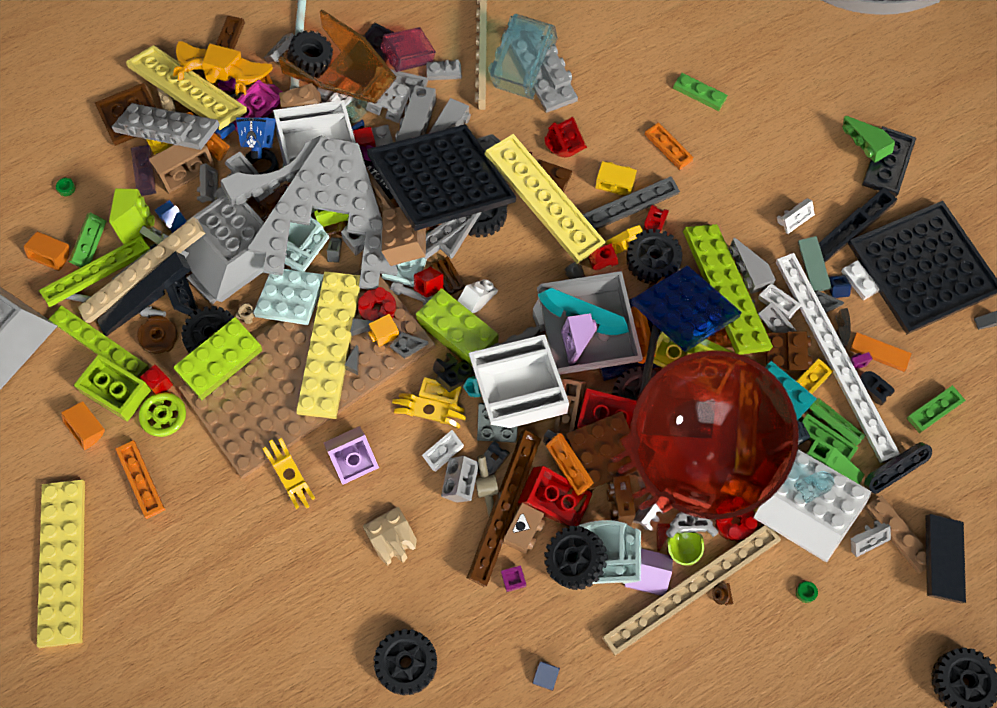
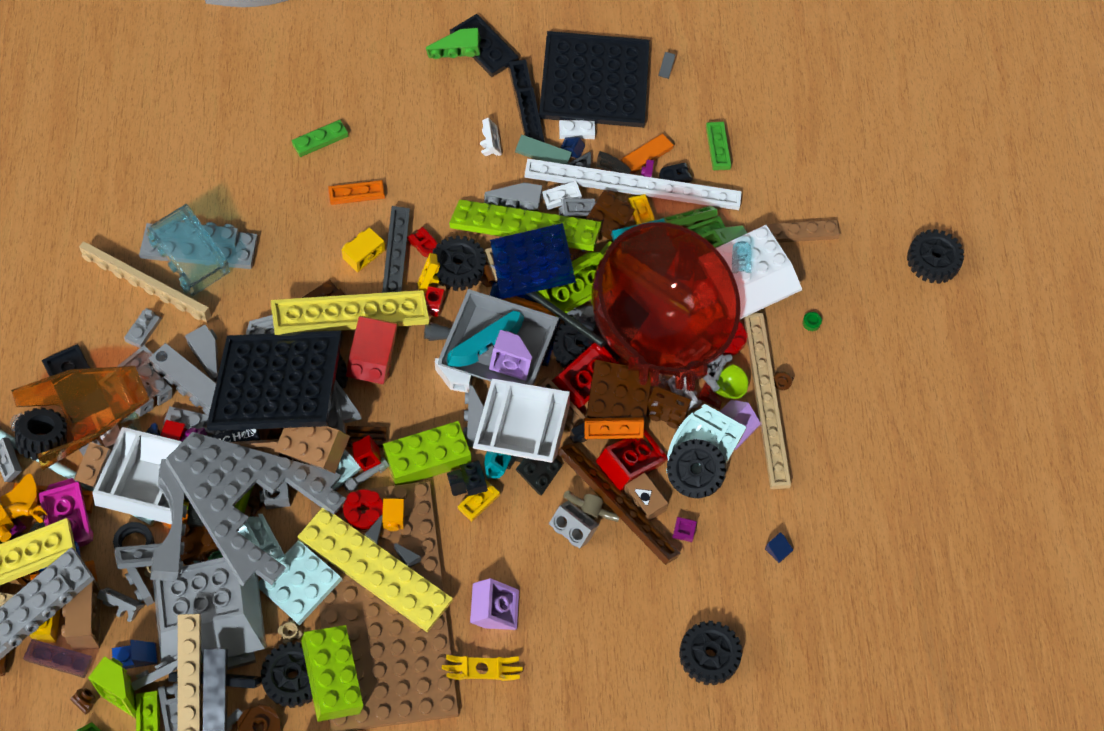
camera: 65 degrees left, 5 degrees down
(256, 133) = (105, 523): blue torso -> none
(334, 250) = (275, 521): dark grey piece -> none
(391, 536) = (590, 610): tan plate -> none
(407, 49) = (100, 344): clear pink brick -> none
(407, 345) = (419, 502): dark grey piece -> none
(440, 413) = (482, 529): yellow piece -> none
(443, 450) = (538, 525): white plate -> none
(477, 295) = (404, 420): white slope -> none
(493, 465) = (568, 480): black plate -> none
(520, 233) = (372, 350): none -> red slope
(565, 138) = (293, 267): red slope -> none
(870, 538) = (795, 251): light grey plate -> none
(898, 467) = (750, 199): black plate -> none
(945, 559) = (838, 212): black tile -> none

